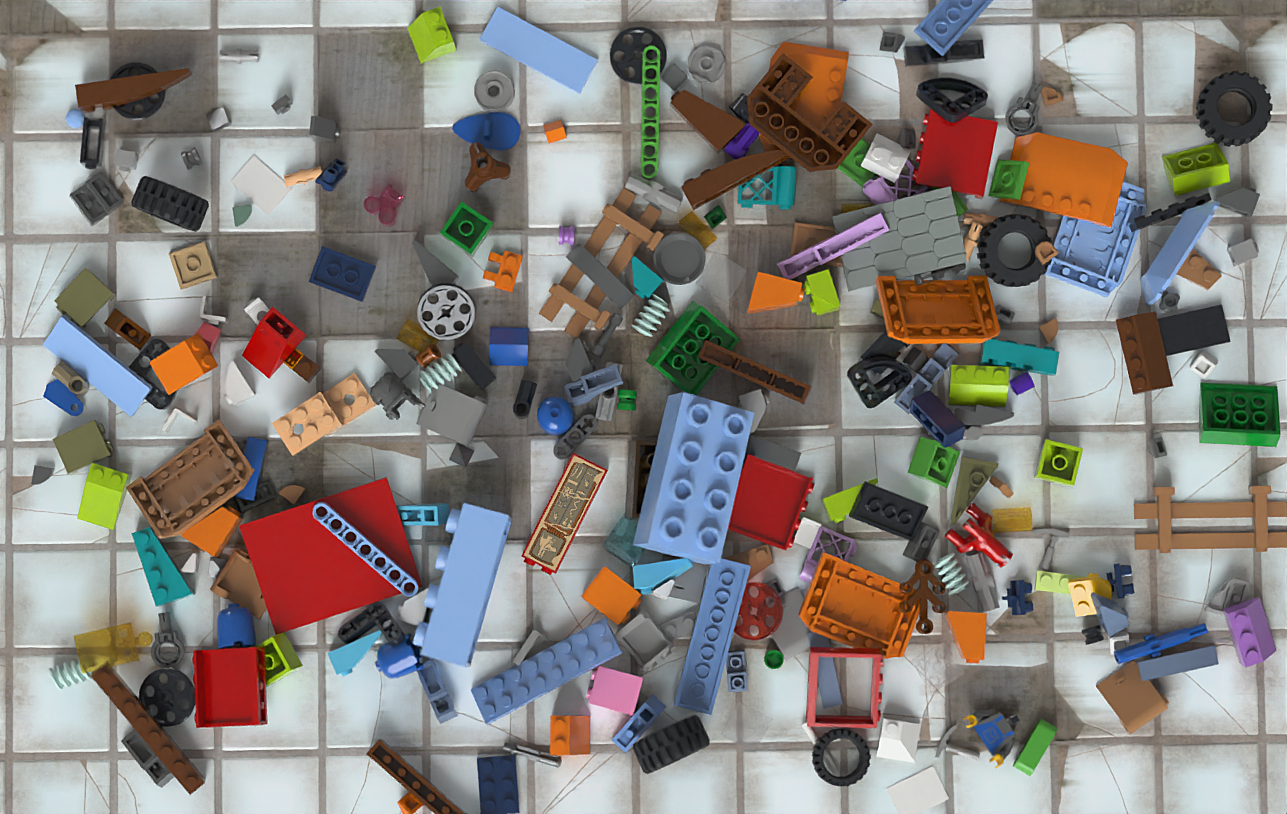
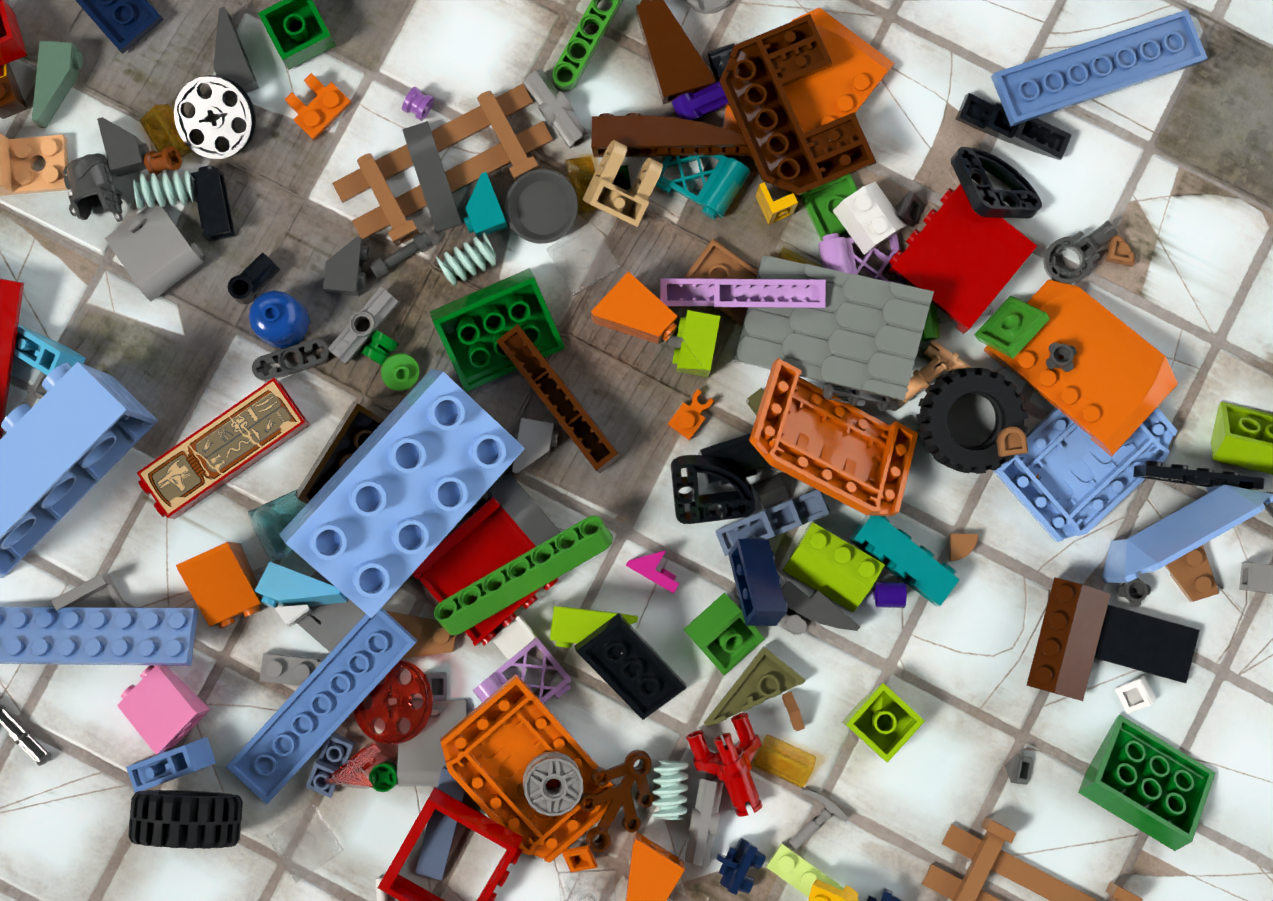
camera: 25 degrees right, 0 degrees up
(330, 335) = (55, 75): none -> sand green slope
(461, 455) = (138, 308): flat silver slope -> none
(508, 346) = (271, 203): blue slope -> none
(569, 734) = (69, 733): orange slope -> none
(593, 384) = (345, 305): sand blue slope -> none
(645, 641) = (234, 664): light grey panel -> none
(647, 408) = (400, 371): none -> bright green piece
(723, 231) = (615, 200): none -> tan brick
(753, 666) = (350, 772): none -> clear red slope
(793, 491) = (523, 575): none -> bright green beam
(822, 186) = (778, 209): none -> yellow panel
(840, 342) = (689, 418): none -> orange plate
(864, 446) = (646, 567): none -> dark pink slope
(889, 612) = (558, 799): none -> light grey wheel
(891, 42) = (954, 79): dark grey slope -> none
(919, 644) = (579, 858): none -> orange slope
(922, 542) = (654, 729): dark grey slope -> none
(1004, 315) = (914, 496): flat silver slope -> none
(1048, 178) = (1066, 351): none -> dark grey plate

